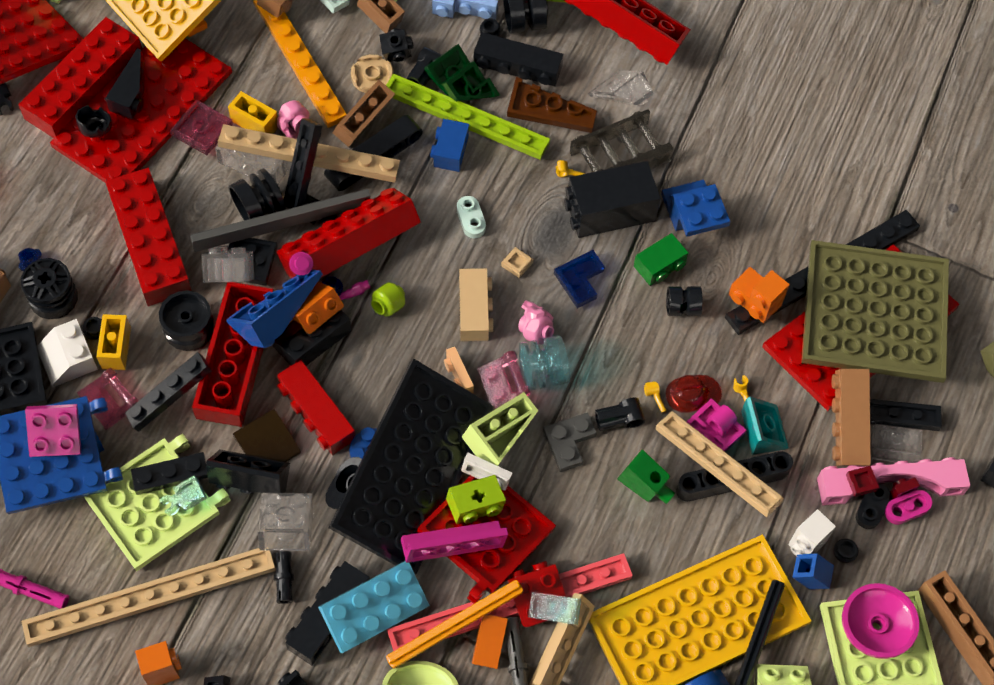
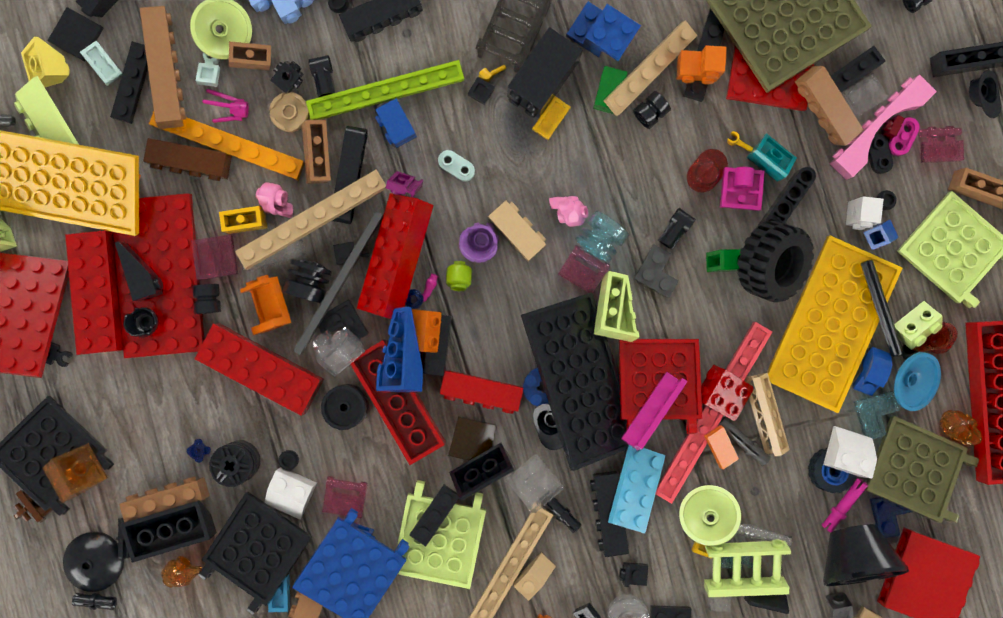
camera: 35 degrees left, 25 degrees up
(53, 430) = (344, 564): dark pink plate -> none
(113, 342) = (313, 461): yellow brick -> none
(161, 151) = (206, 298): none -> black wheel
(168, 391) = (382, 464): black plate -> none
(186, 496) = (459, 522): clear light blue plate -> none
(203, 609) = (534, 576): none -> tan slope
(209, 191) = (268, 303): none -> orange panel
(256, 43) = (188, 159): none -> reddish brown brick
(301, 263) = (390, 312): dark pink plate -> none
(302, 163) = (318, 234): black plate -> none
(333, 39) = (237, 107): none -> dark pink plant
(411, 188) = (401, 183): none -> magenta plate
(431, 284) = (479, 242): none -> medium lavender hair
(454, 624) = (696, 458): light orange axle -> none
(455, 365) = (557, 292): light nougat plate -> none
(460, 77) = (354, 63): dark green slope -> none
(475, 500) = (643, 359): lime brick -> none
(481, 468) = (631, 345): white tile -> none
(517, 262) = (516, 173): tan tile -> none
(539, 106) = (434, 35): reddish brown wing -> none
(547, 176) = (481, 90): none -> black plate
(554, 608) = (751, 400): clear light blue plate -> none
(575, 276) = (564, 154): clear blue plate -> none
(585, 241) = (551, 118): none -> yellow plate
(652, 388) = (679, 191): yellow hand -> none
(705, 521) = (775, 261): none -> black tyre
(708, 265) = (650, 68): none -> tan plate
(719, 464) = (769, 211): tan tile -> none
(862, 481) = (871, 148): dark red plate -> none
(890, 610) = (963, 234): dark pink dish -> none
(938, 549) = (941, 151): none -> clear pink plate

